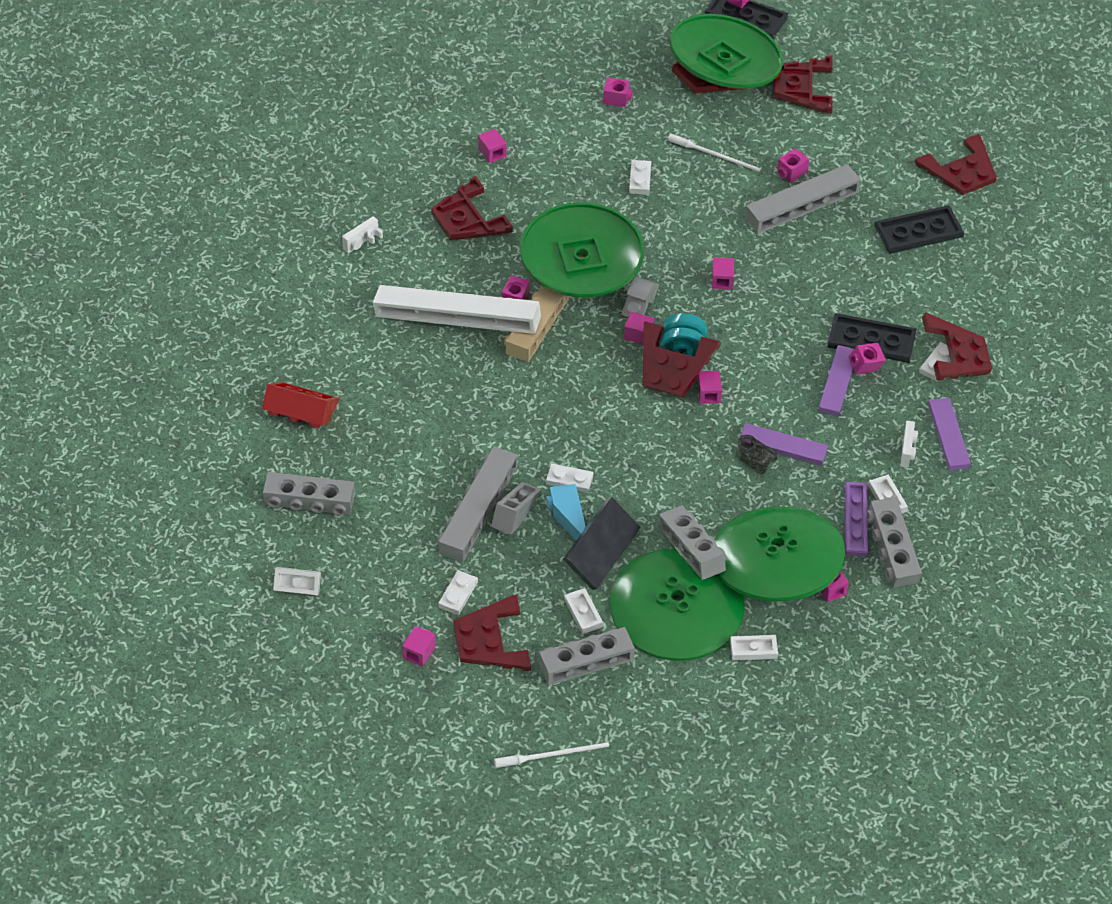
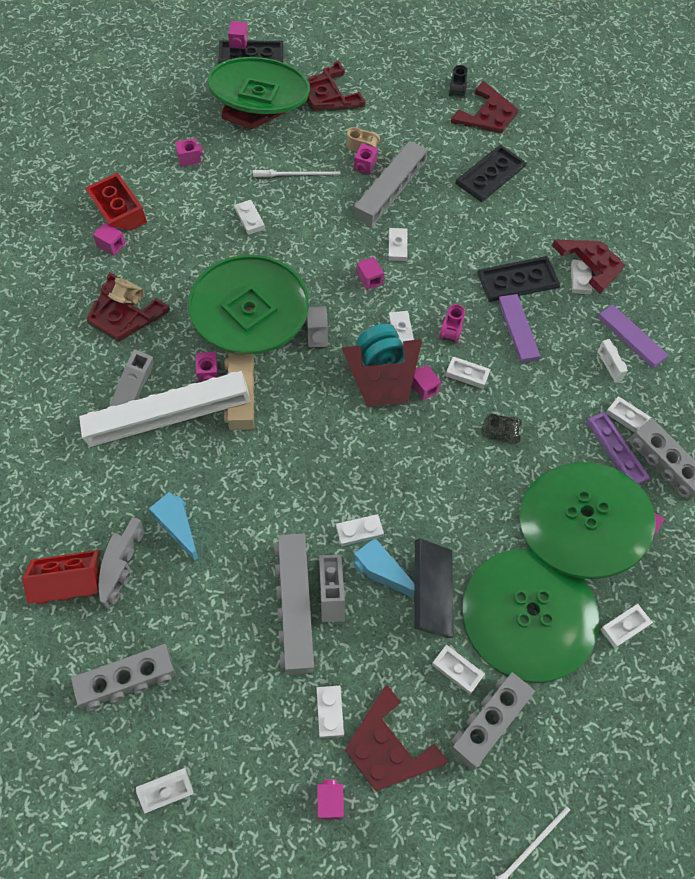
camera: 30 degrees left, 10 degrees up
(345, 412) = (114, 568): none -> light grey slope
(360, 234) = (30, 378): white plate -> none
(414, 399) = (173, 518): none -> medium azure slope
(446, 272) = (133, 378): none -> light grey slope
(480, 198) = (126, 292): none -> tan piece
(516, 115) = (117, 203): none -> red slope
(634, 327) = (332, 354): dark pink brick -> none
(692, 542) = (518, 556): light grey brick -> none
(723, 332) = (402, 324): none -> white plate
(757, 396) = (468, 372): none -> white plate
(771, 259) = (397, 244): none -> white plate
(772, 349) = (452, 326): none -> dark pink piece
(789, 445) = (517, 406): medium lavender tile -> none
(800, 141) = (357, 136): none -> tan piece
(866, 358) = (532, 298): dark pink brick -> none
(949, 124) = (459, 81): none -> black piece

